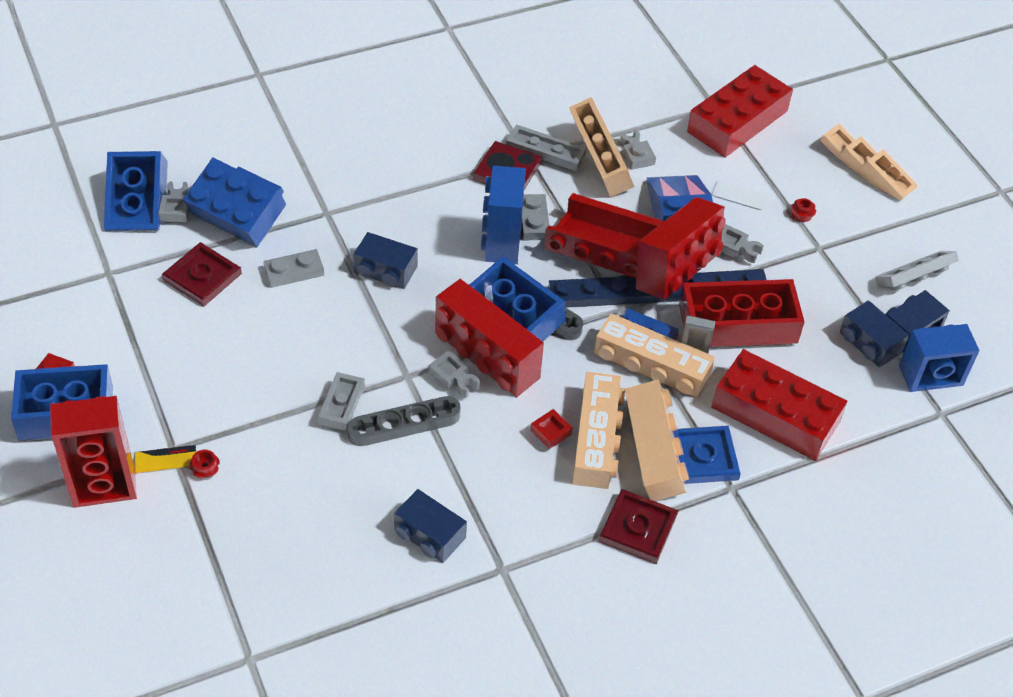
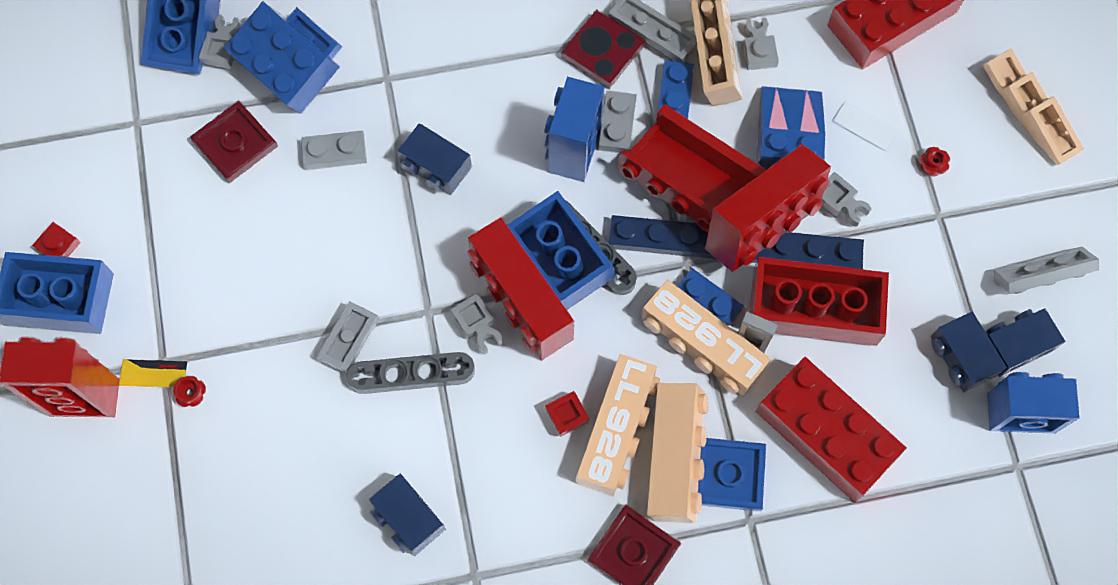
camera: 15 degrees right, 20 degrees up
(575, 181) = (676, 86): none -> blue plate

